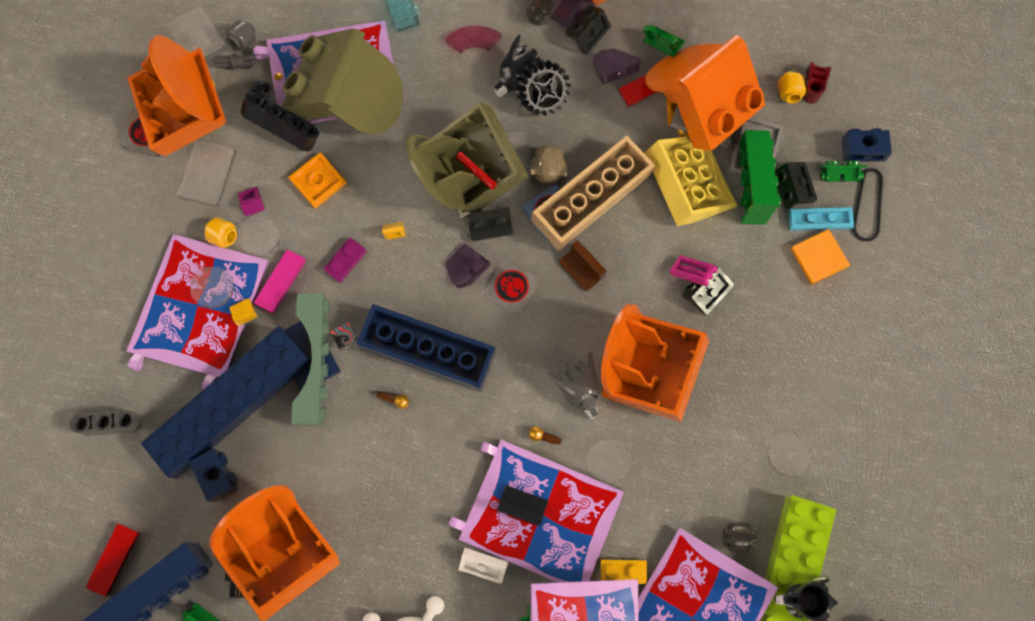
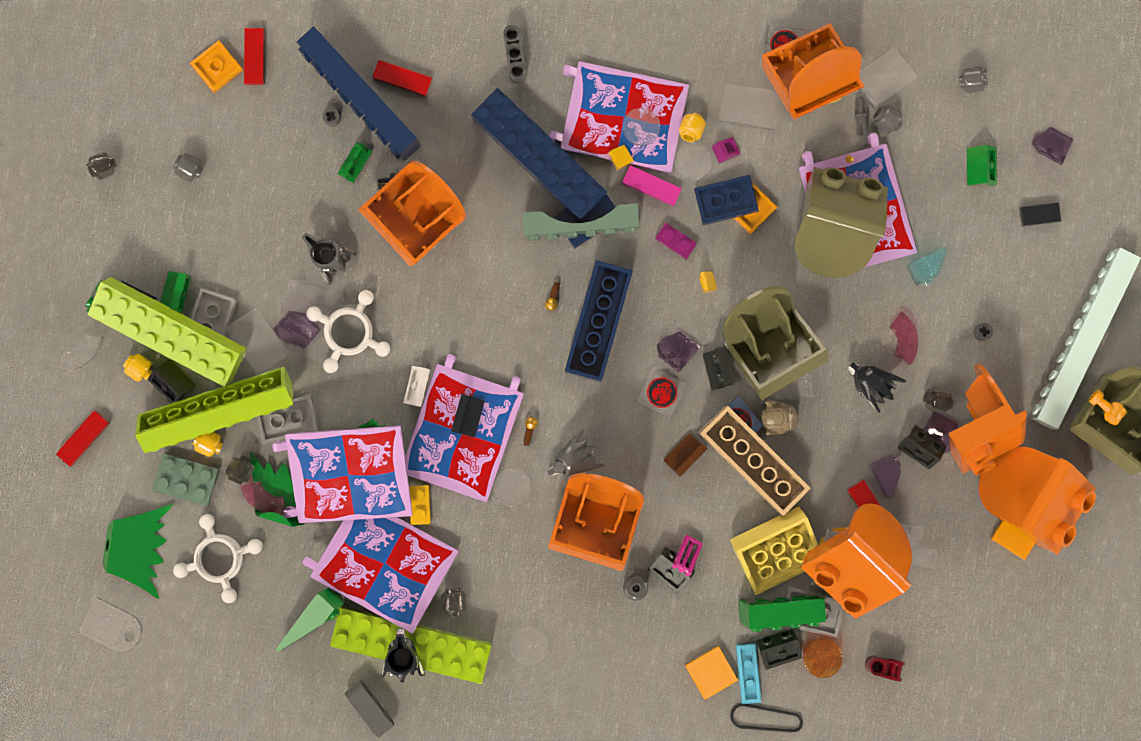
camera: 85 degrees right, 10 degrees up
(203, 468) = (481, 142): dark blue brick -> none
(277, 120) = (792, 187): black beam -> none
(305, 202) = (726, 200): none -> dark blue tile
(344, 336) = (606, 248): tile -> none
(476, 170) = (761, 351): red piece -> none
(547, 80) = (847, 409): black gear -> none
(662, 40) = (916, 519): green hinge -> none
(721, 328) = (634, 580): none -> dark grey head
(791, 87) = (877, 644): yellow head -> none
(805, 142) = (822, 657): none -> clear orange tile
(850, 171) = (798, 700): green hinge -> none
(855, 150) = (817, 705): dark blue brick -> none

